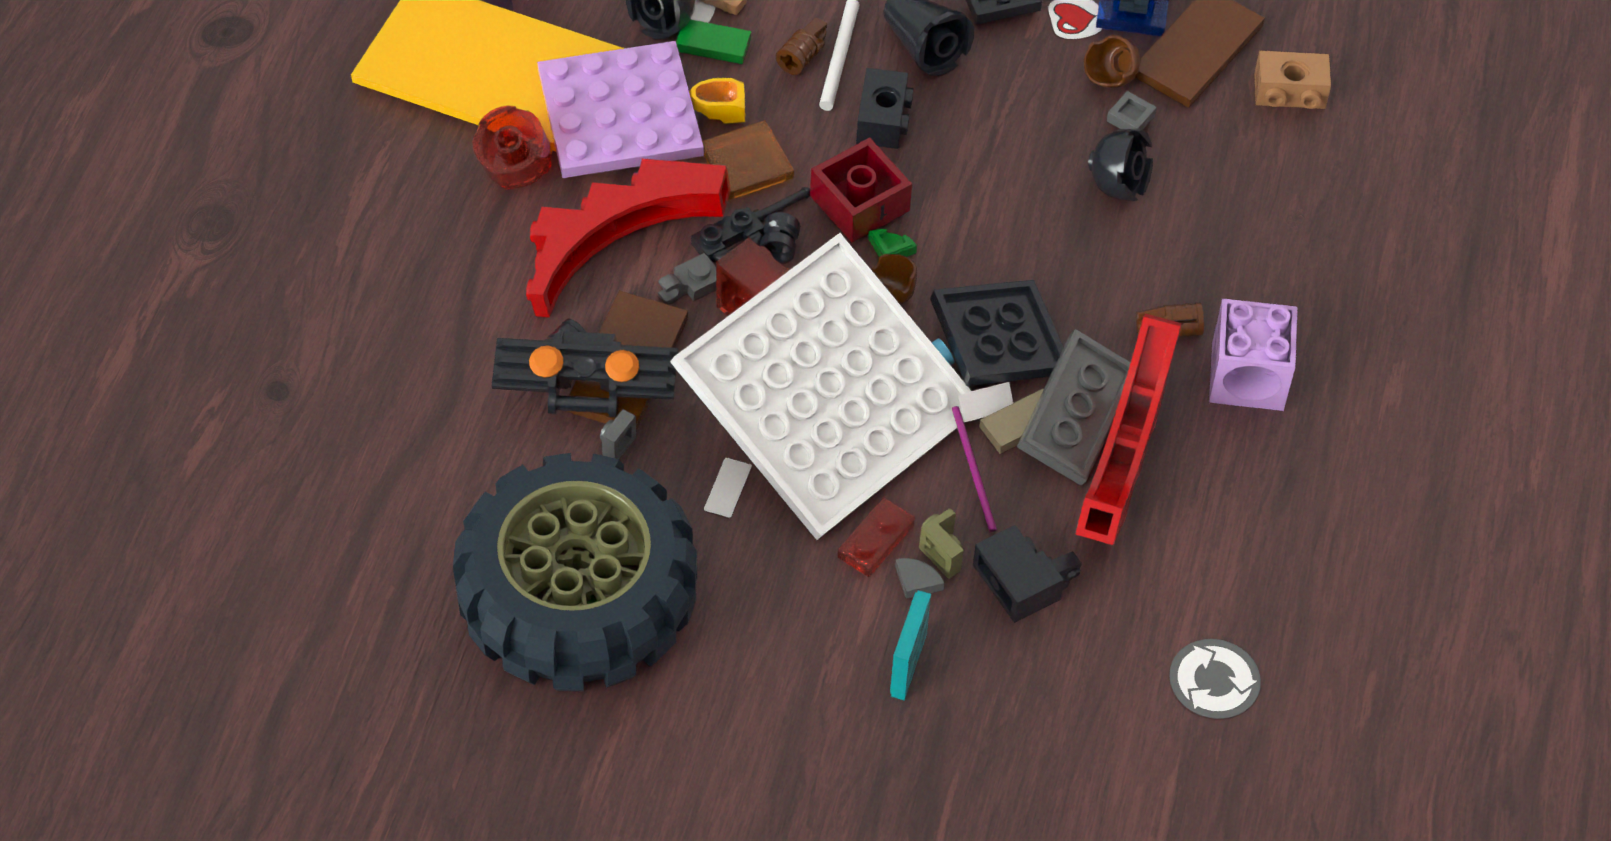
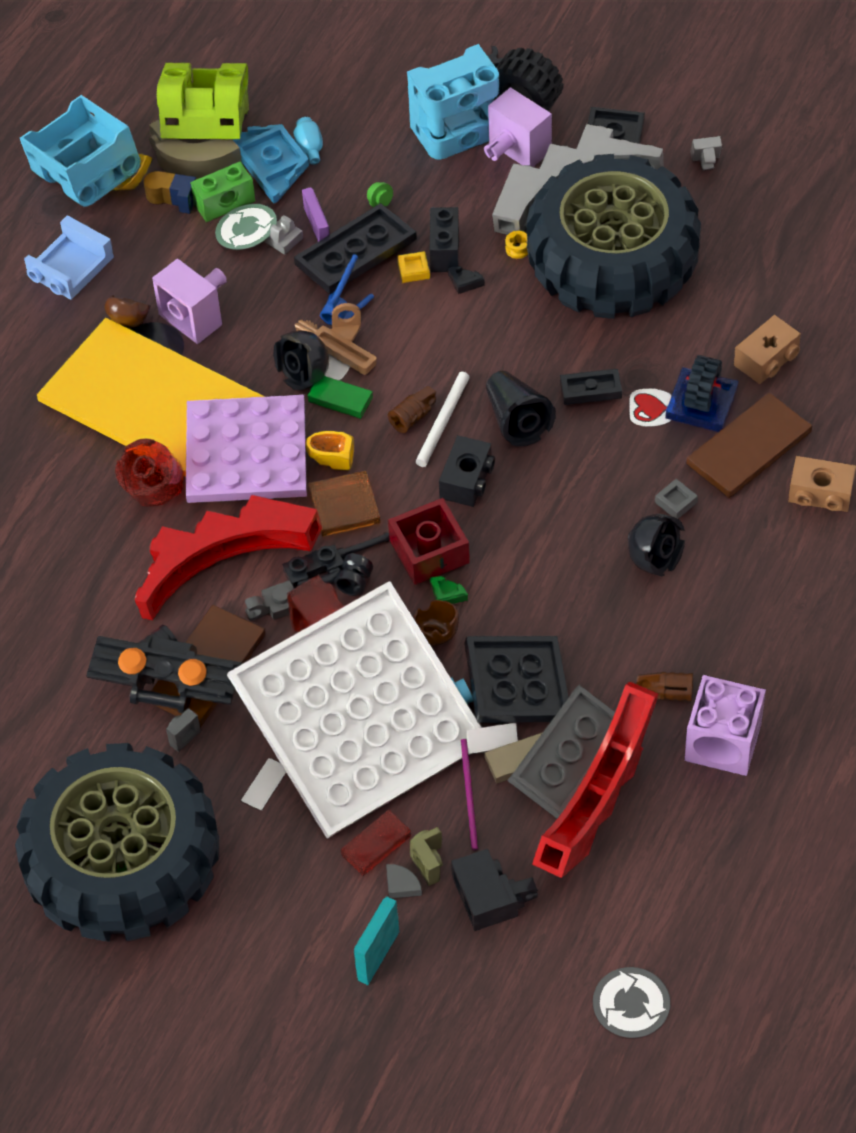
camera: 15 degrees right, 0 degrees up
(1112, 61) = (668, 451): reddish brown hair -> none

